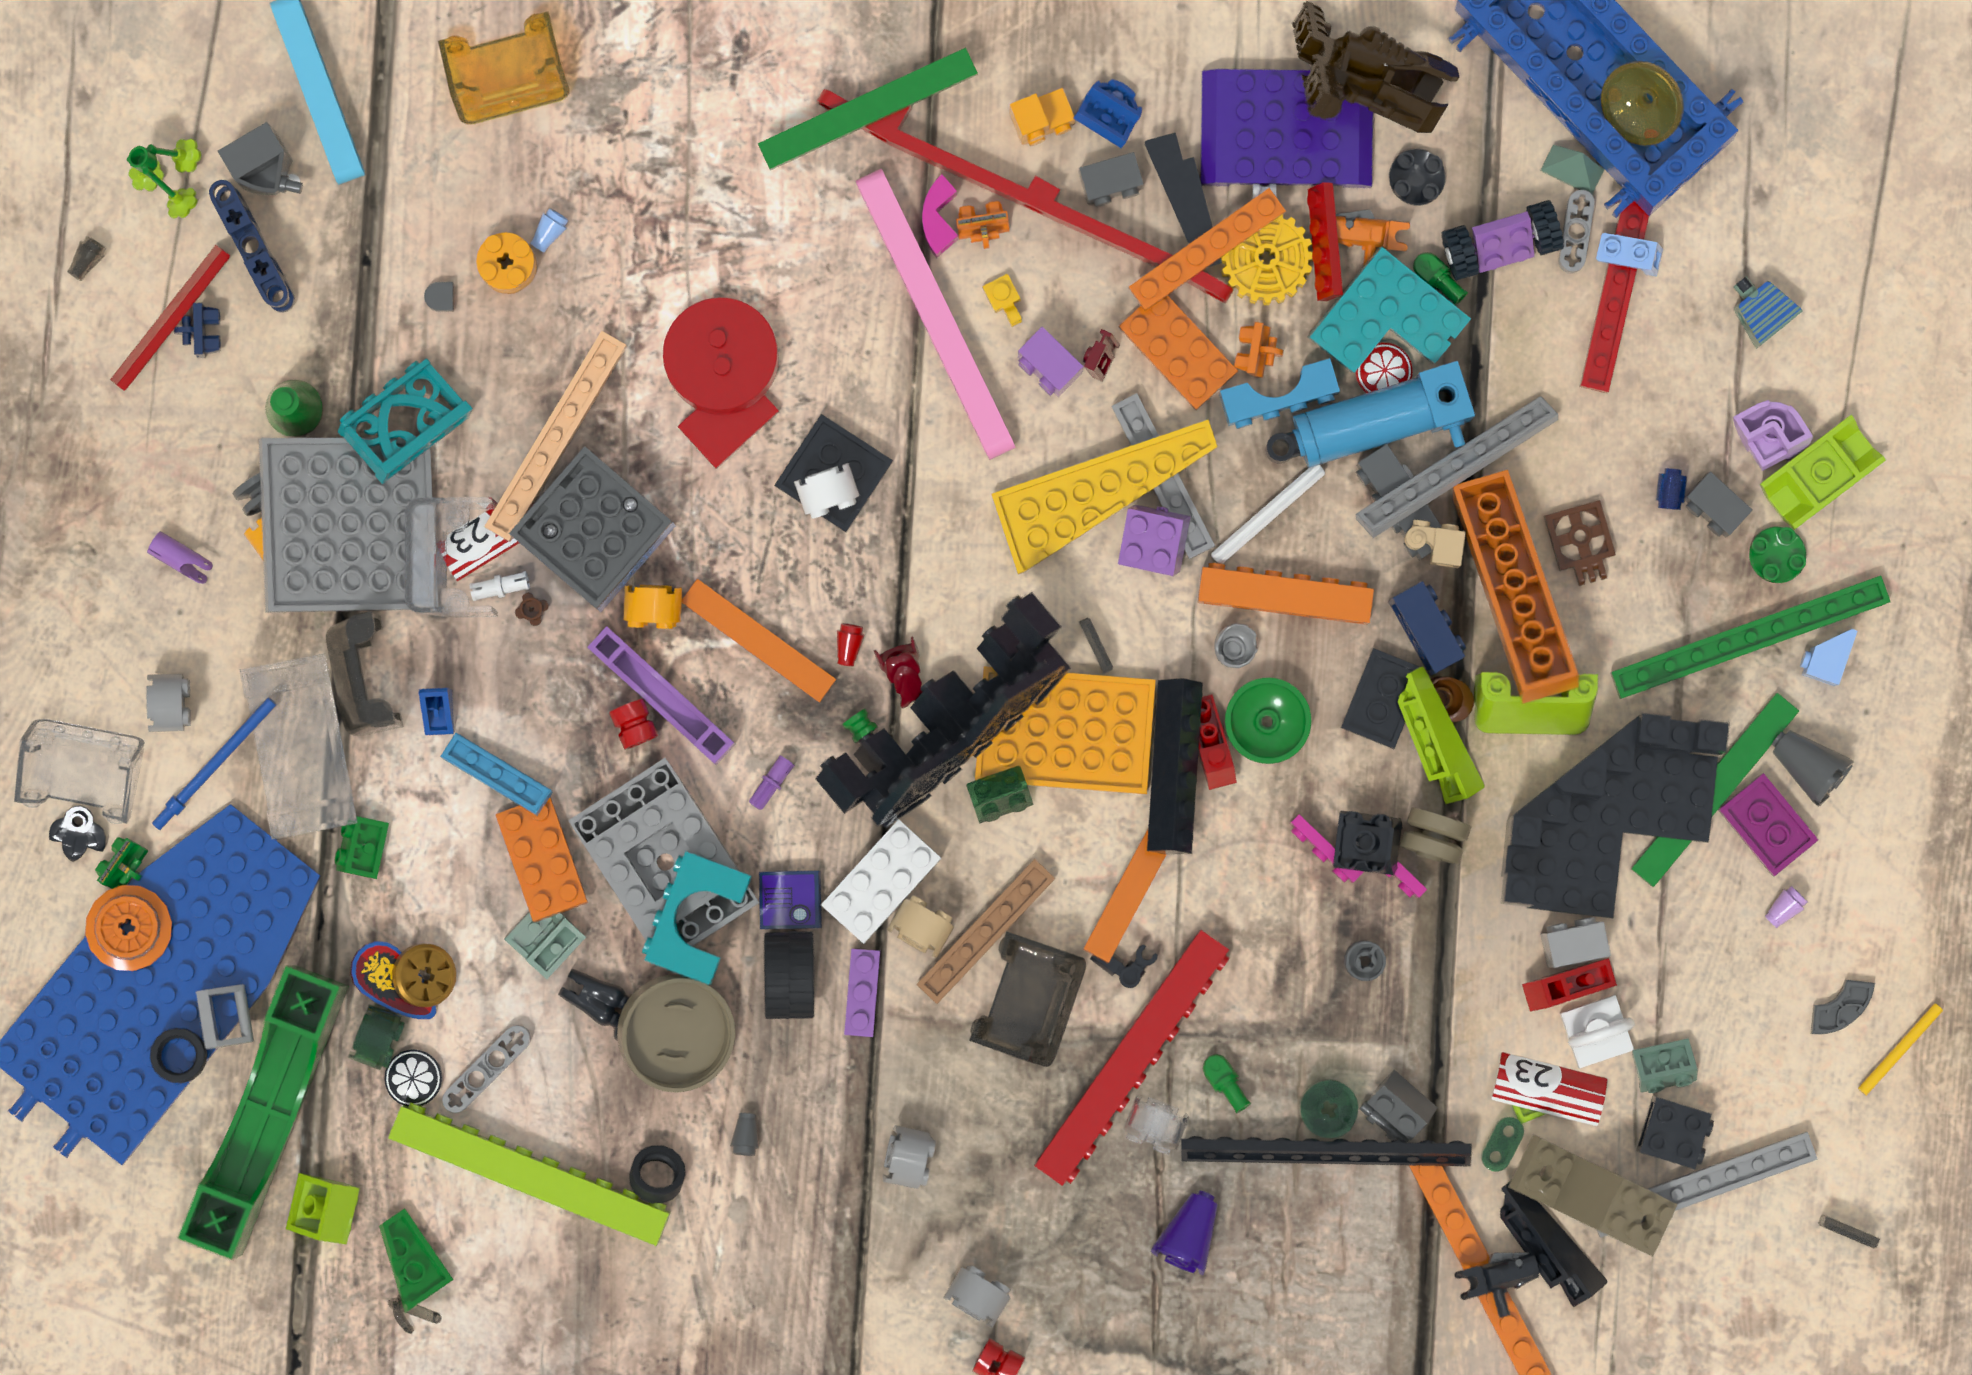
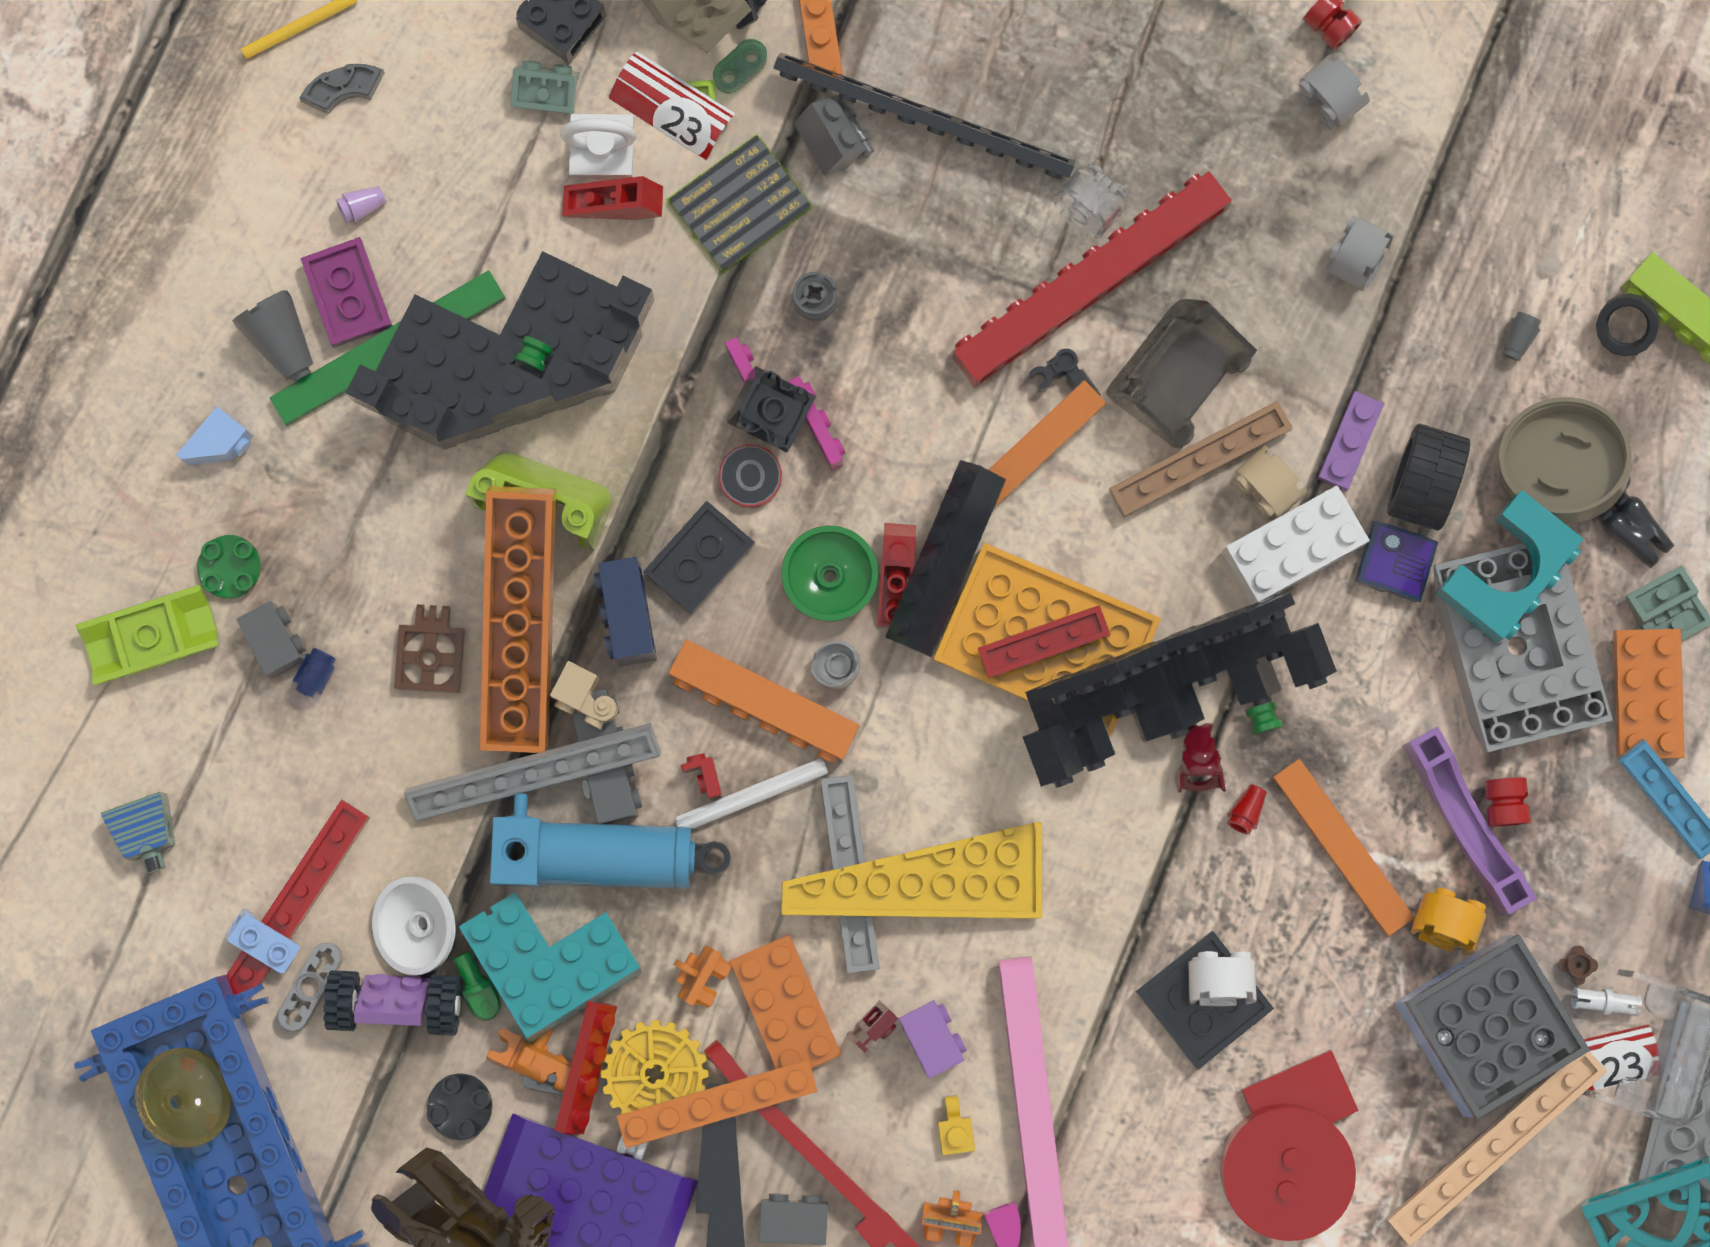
camera: 165 degrees left, 5 degrees down
(771, 782) = (1377, 690): medium lavender axle -> none
(999, 794) = (1139, 594): clear green bracket -> none
(1067, 723) = (1043, 642): none -> red plate
(1096, 645) = (984, 716): clear smoke tile -> none
(1154, 540) = (884, 806): medium lavender brick -> none
(1189, 1234) = (1093, 81): dark purple cone -> none
(1224, 1080) = (1003, 225): green arm -> none
(1307, 512) = (708, 780): none -> red bracket
(1315, 384) = (652, 917): dark azure arch -> none
(1343, 1114) = (909, 140): clear green brick -> none
(1364, 785) = (750, 476): none -> black tile
(1384, 367) = (570, 907): dish -> none
(1435, 835) = (697, 392): dark tan wheel -> none
(1437, 739) = (657, 493): lime wedge -> none
(1455, 697) = (633, 533): reddish brown hat -> none
(1458, 1022) = (739, 203): none -> piece
(1516, 300) = (402, 928): none -> white dish
(1572, 168) = (288, 1057): sand green slope -> none
(1575, 944) = (591, 235): light grey brick -> none
(1586, 821) = (533, 354): none -> green wheel
(1750, 637) = (290, 490): green plate -> none
(1772, 432) = (184, 695): lavender brick -> none

